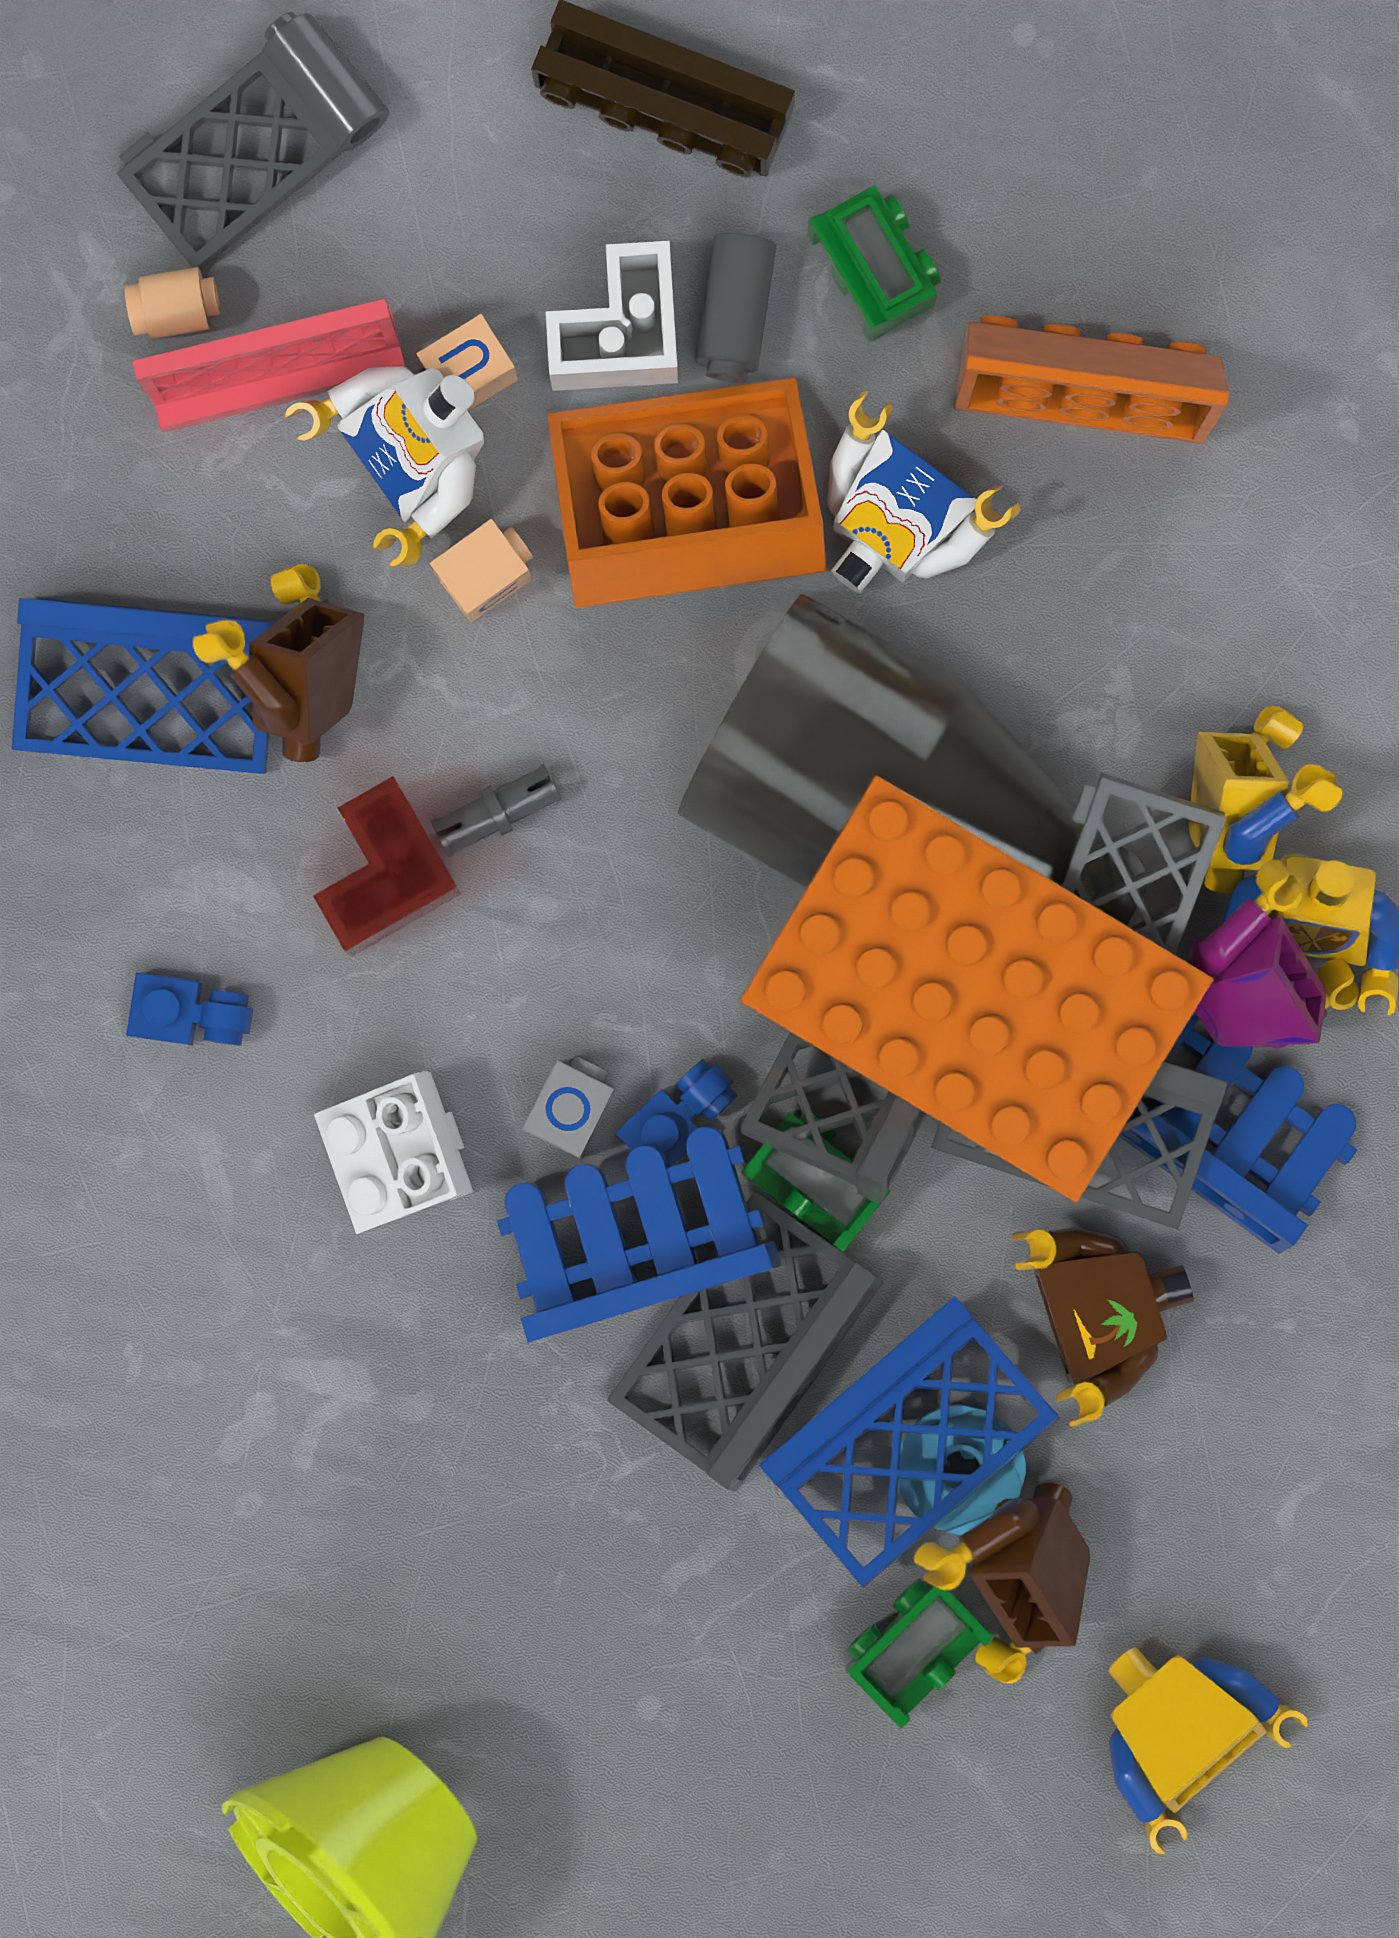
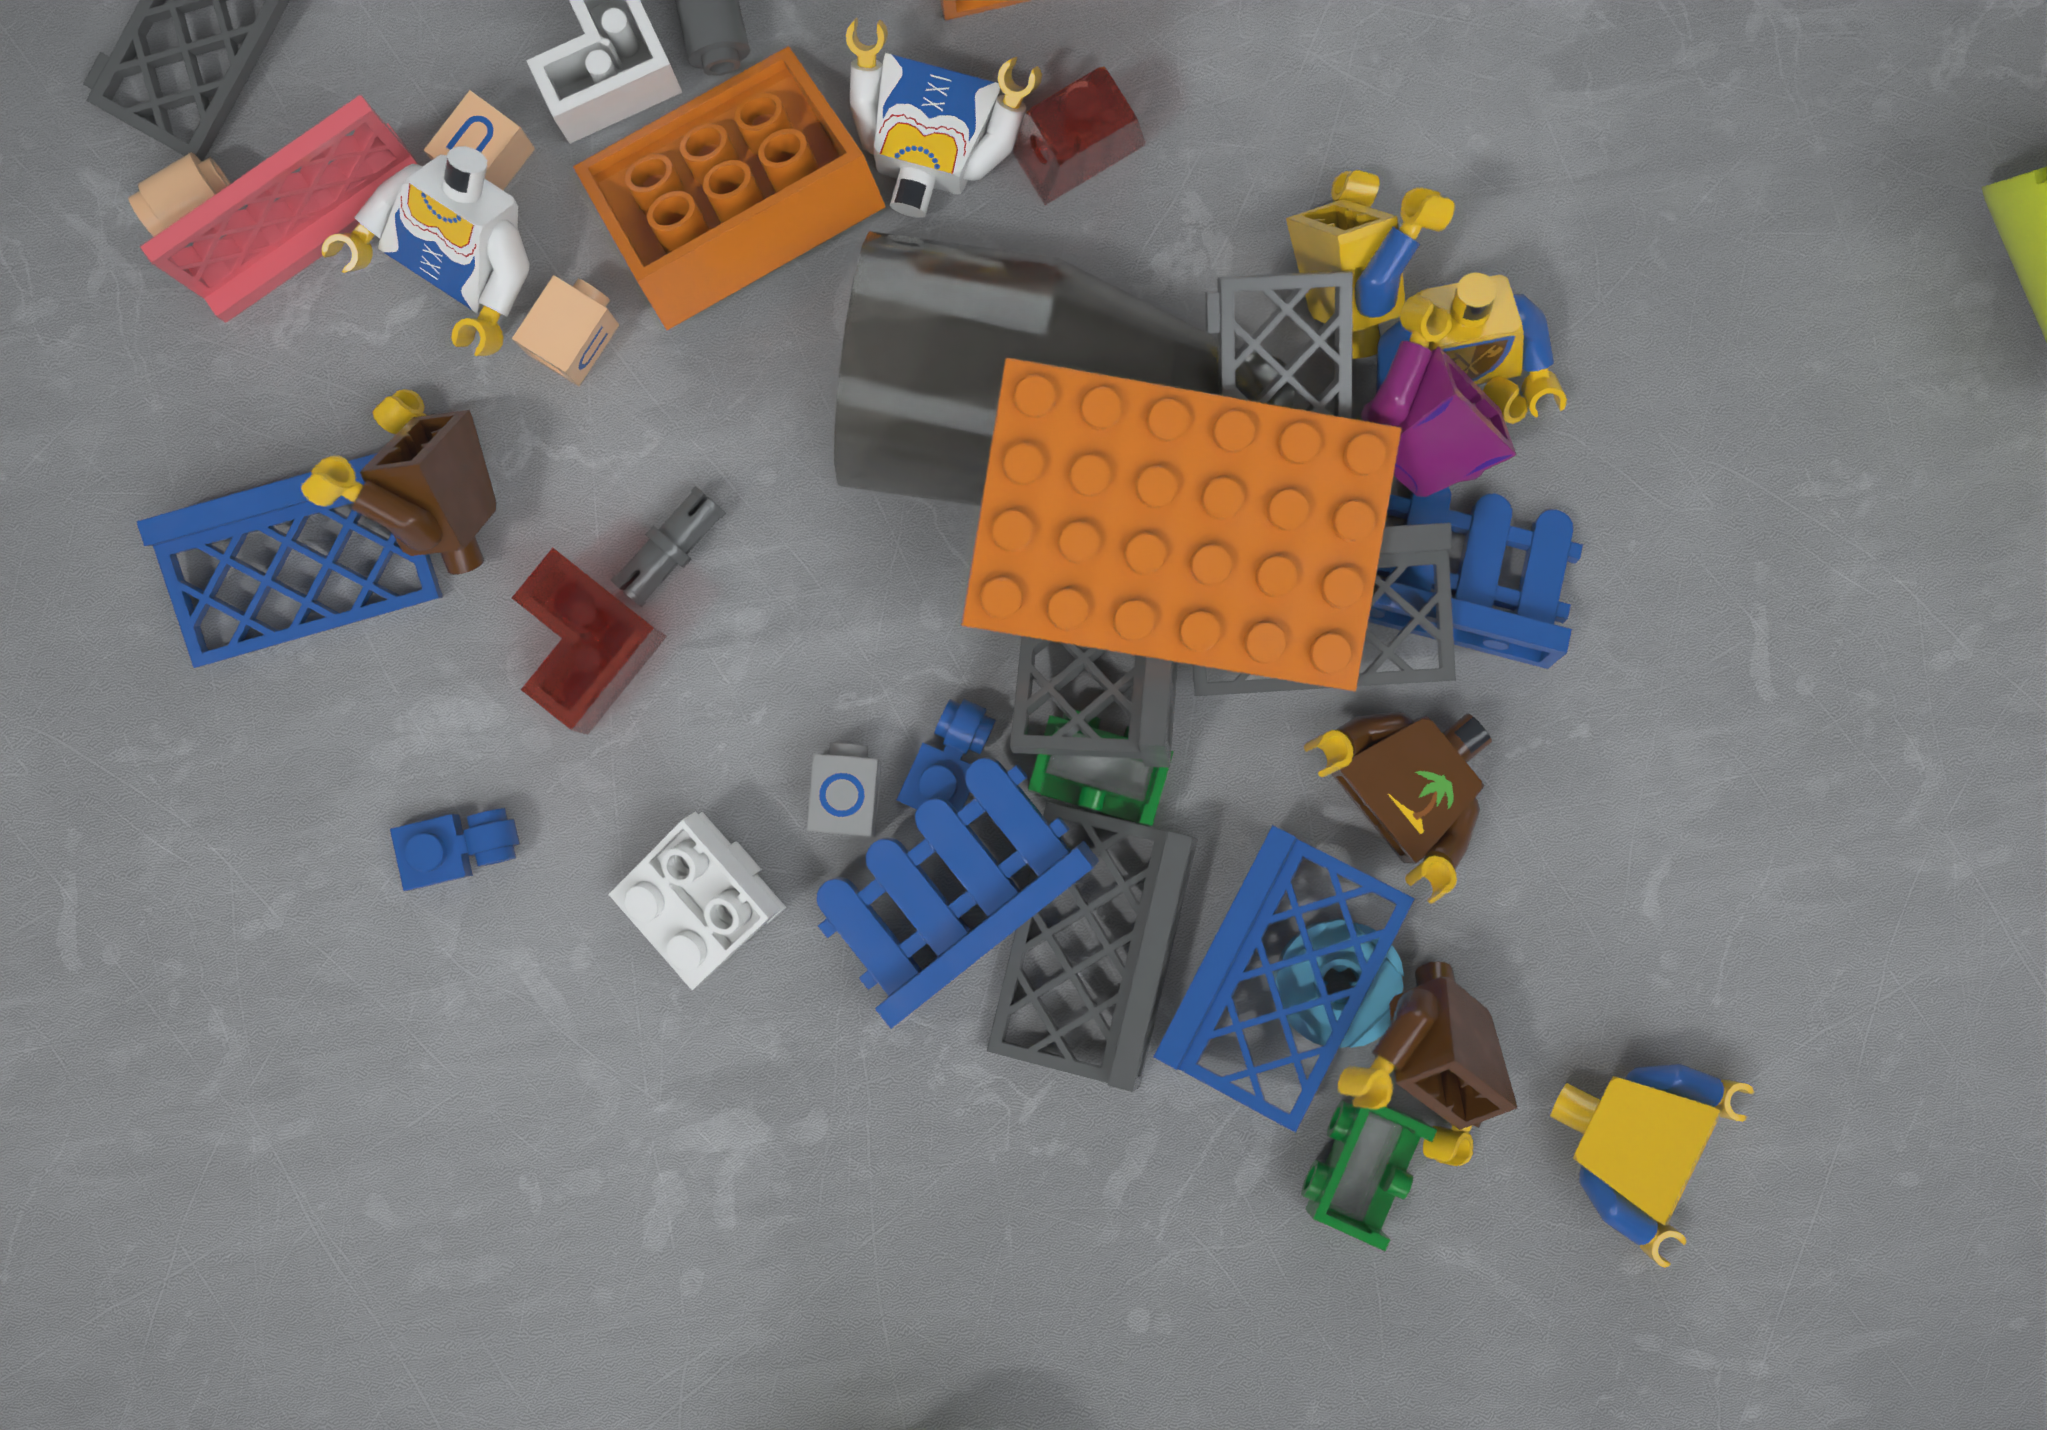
camera: 30 degrees left, 0 degrees up
(1033, 575) = (1082, 132): none -> clear red torso

